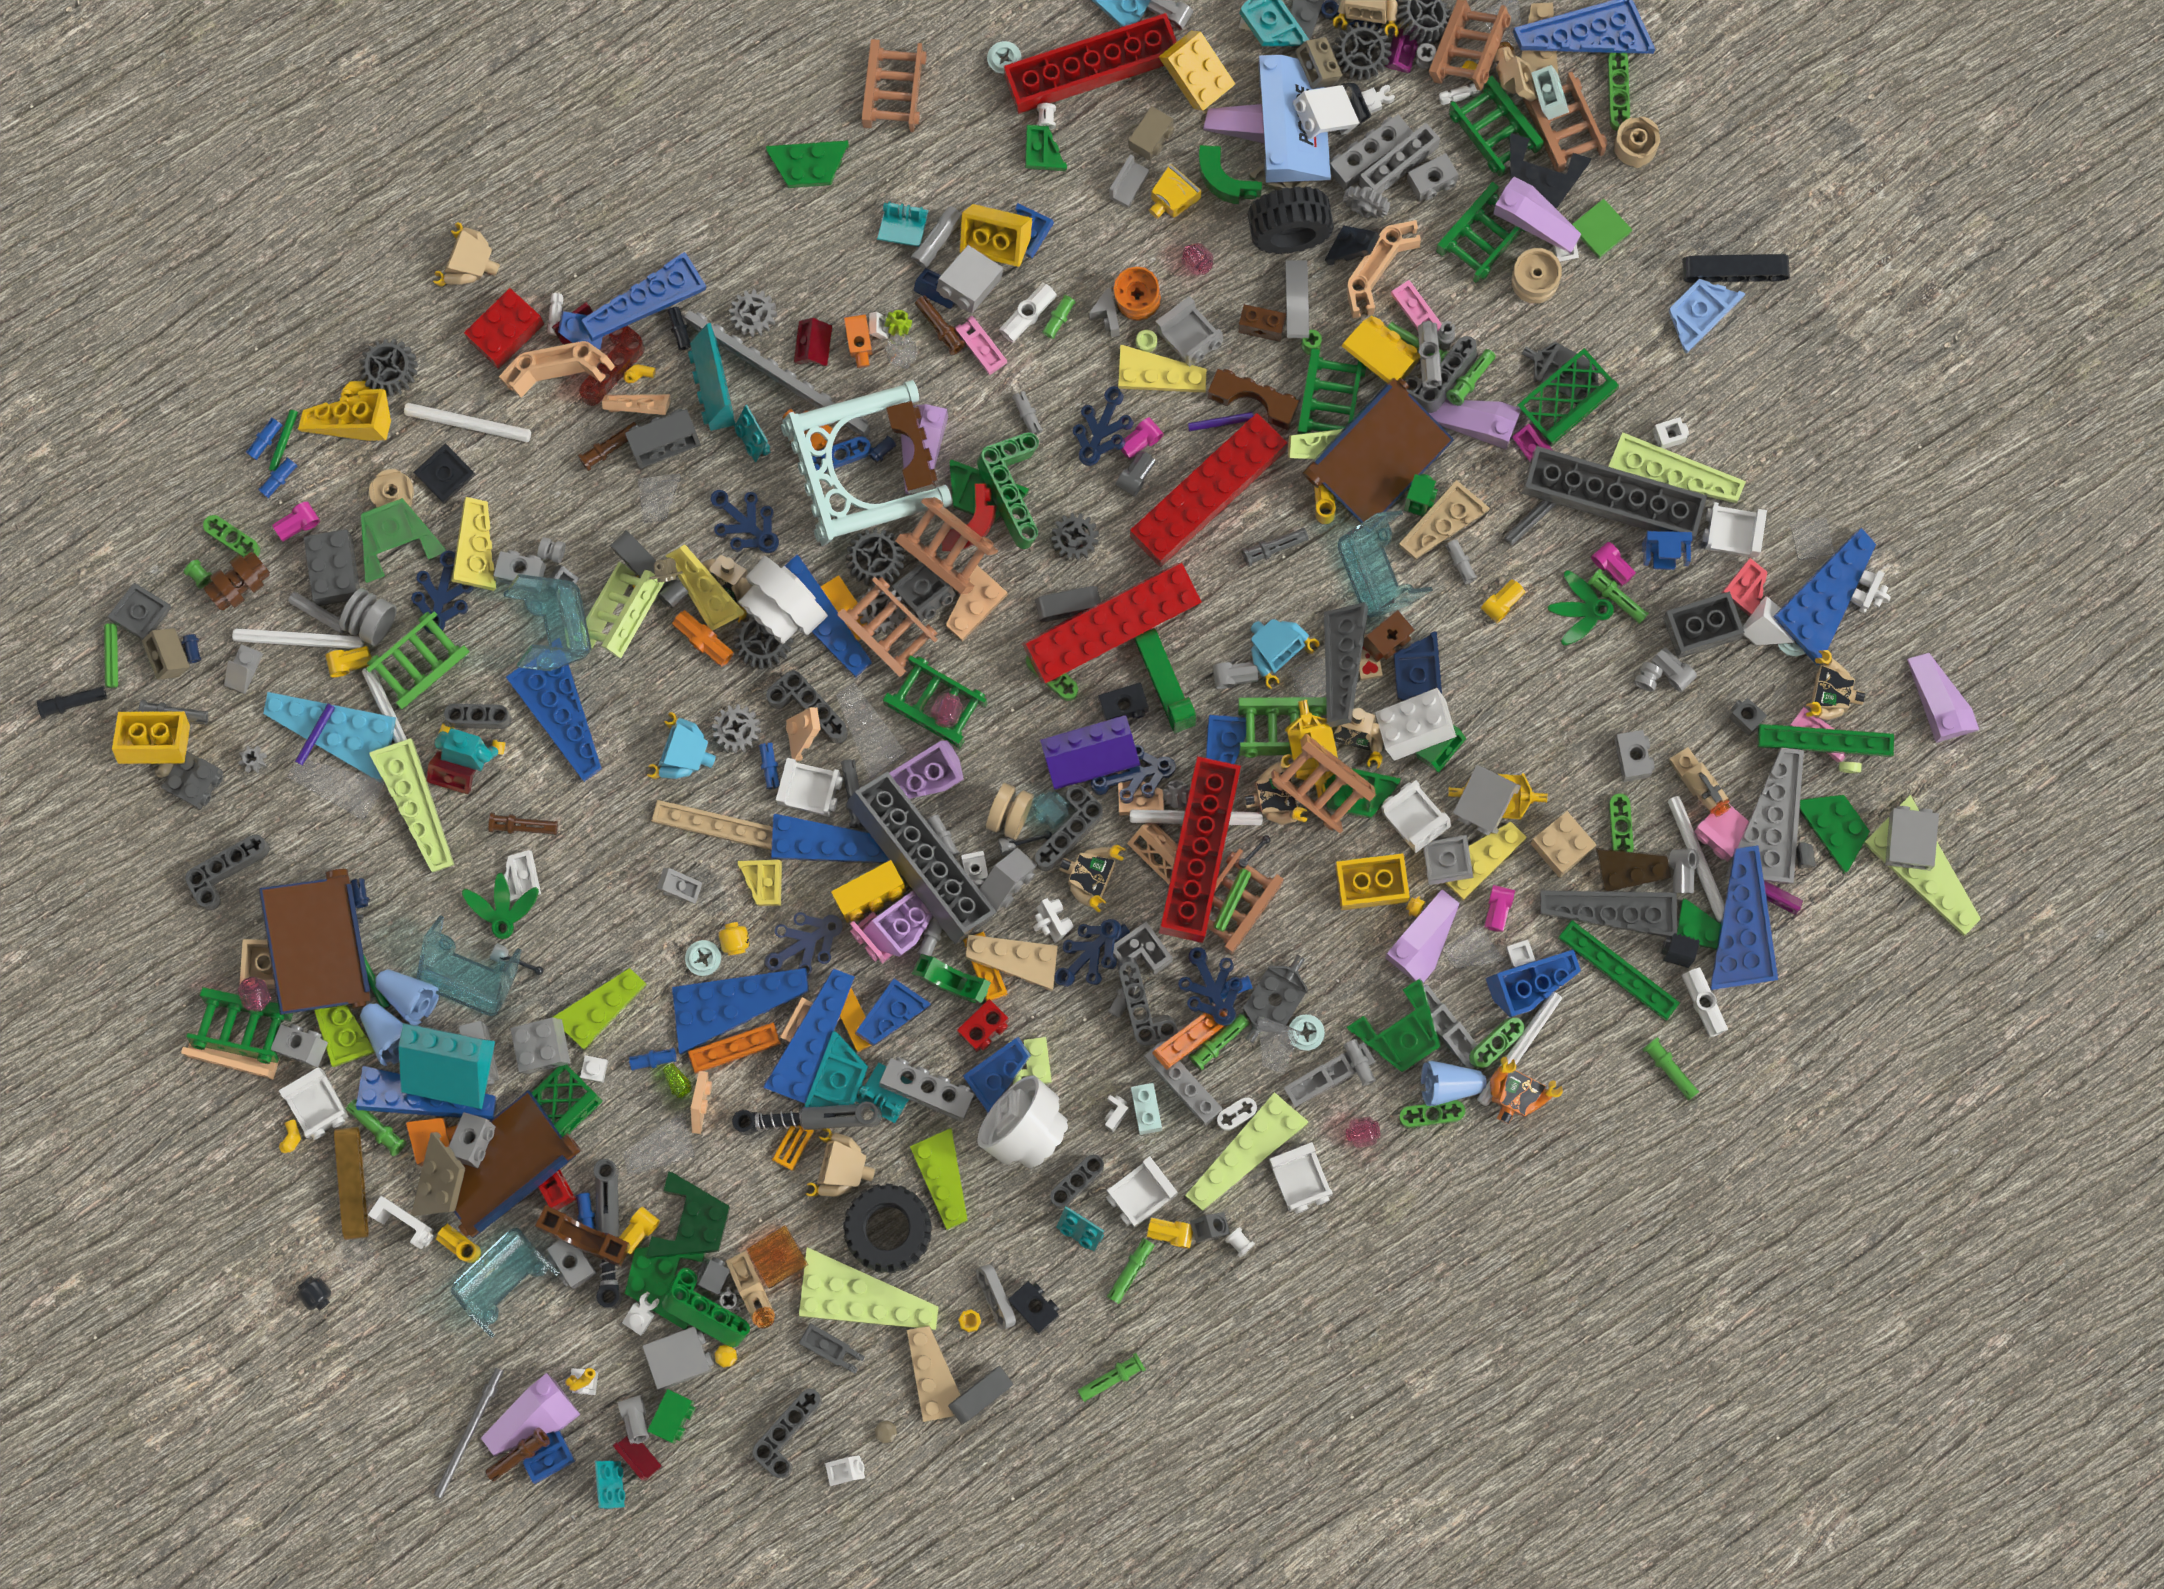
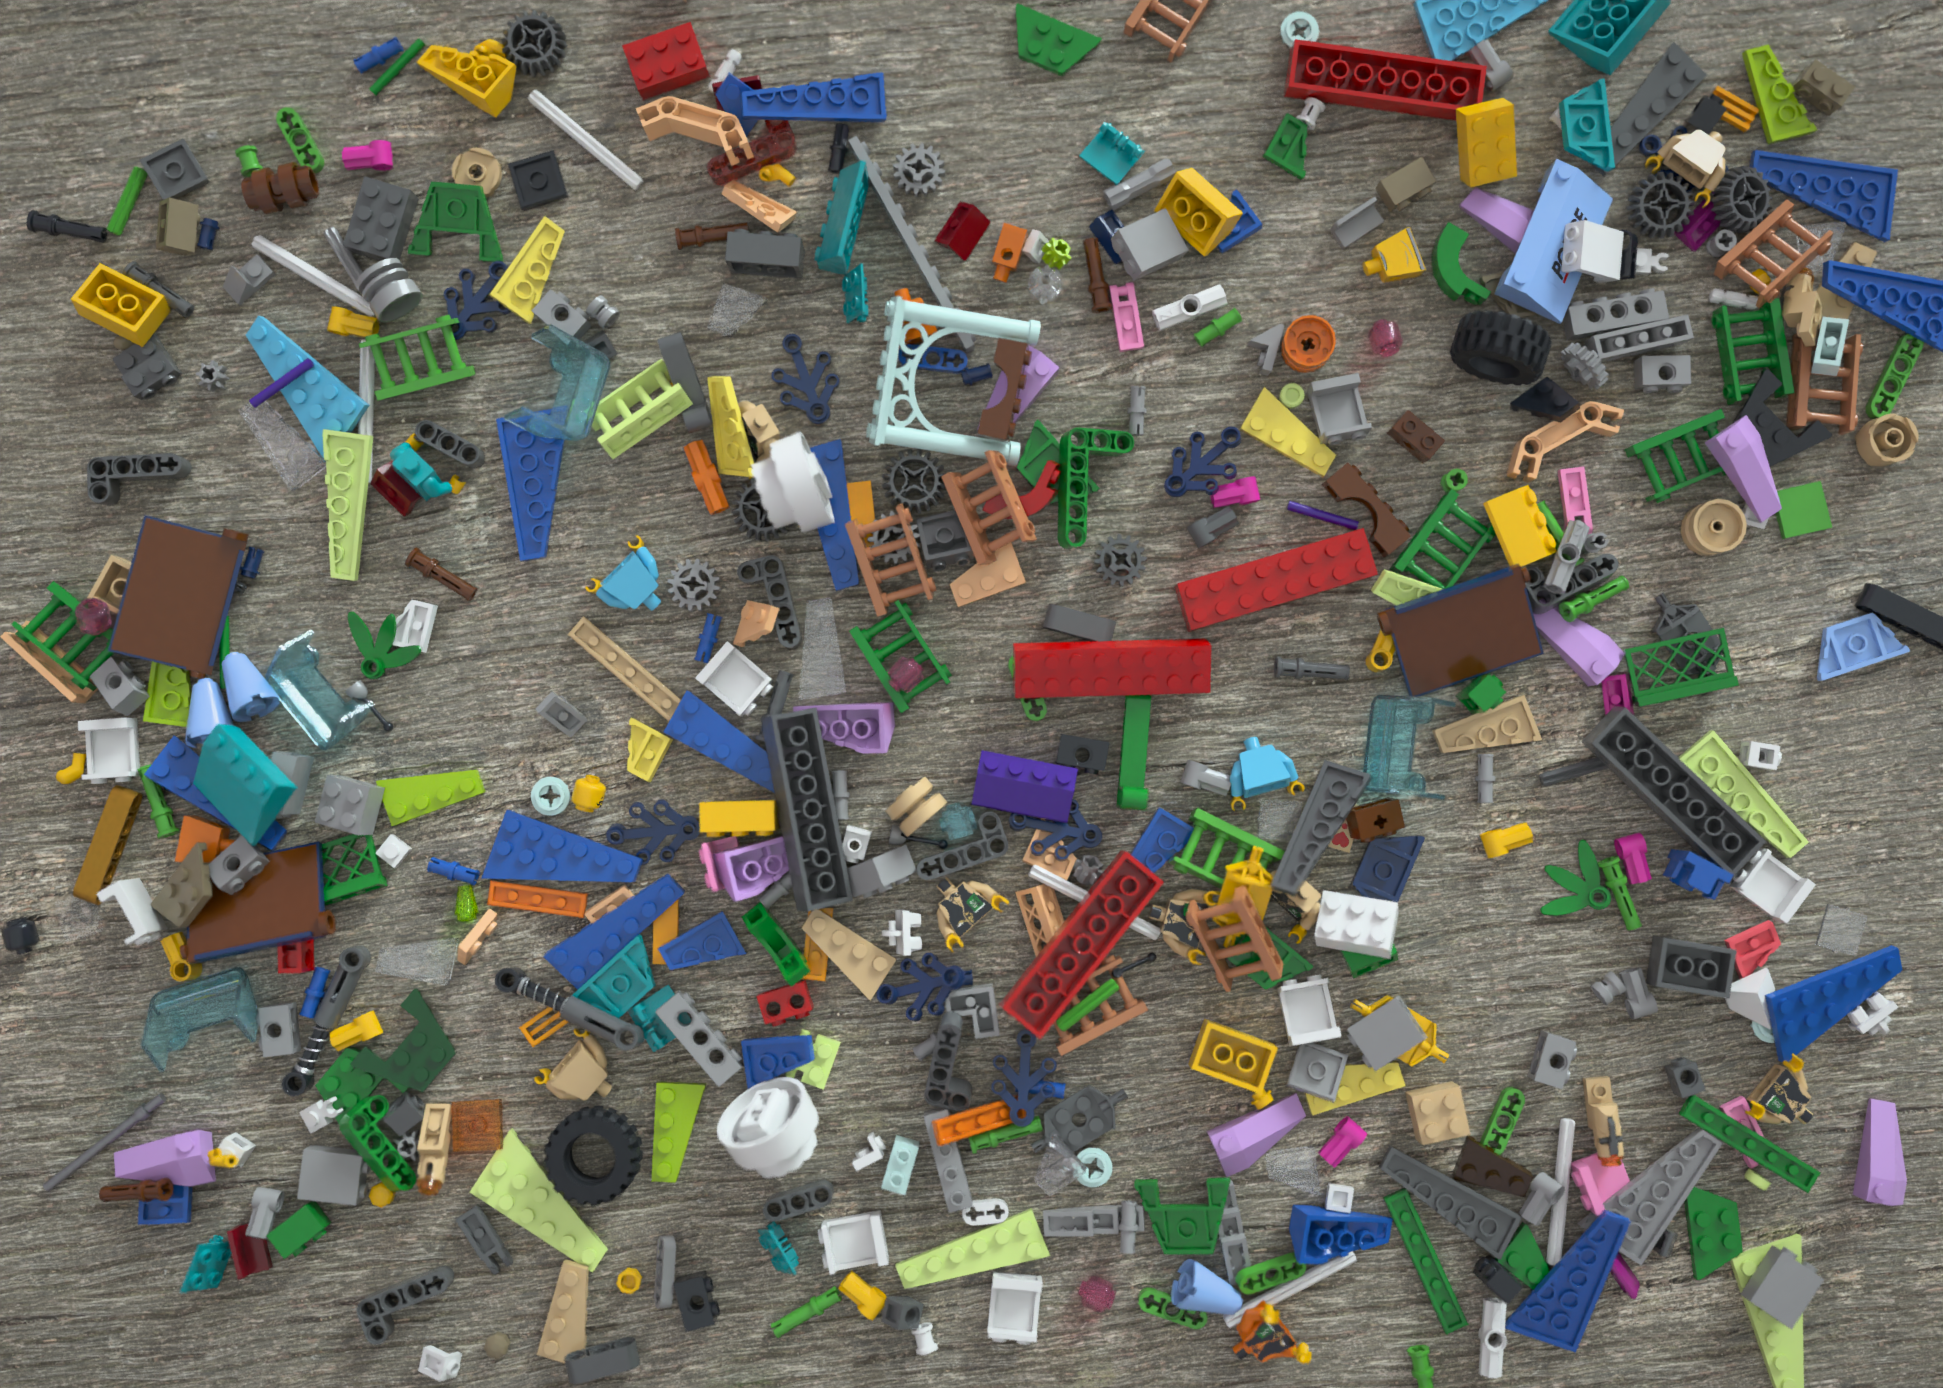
camera: 20 degrees right, 10 degrees up
(277, 477) = (373, 102): blue pin -> none
(582, 1237) = (280, 1001): reddish brown arch -> none
(665, 570) = (696, 395): dark tan hinge -> none
(1297, 299) = (1463, 430): light grey slope -> none
(1318, 63) = (1611, 196): dark tan brick -> none

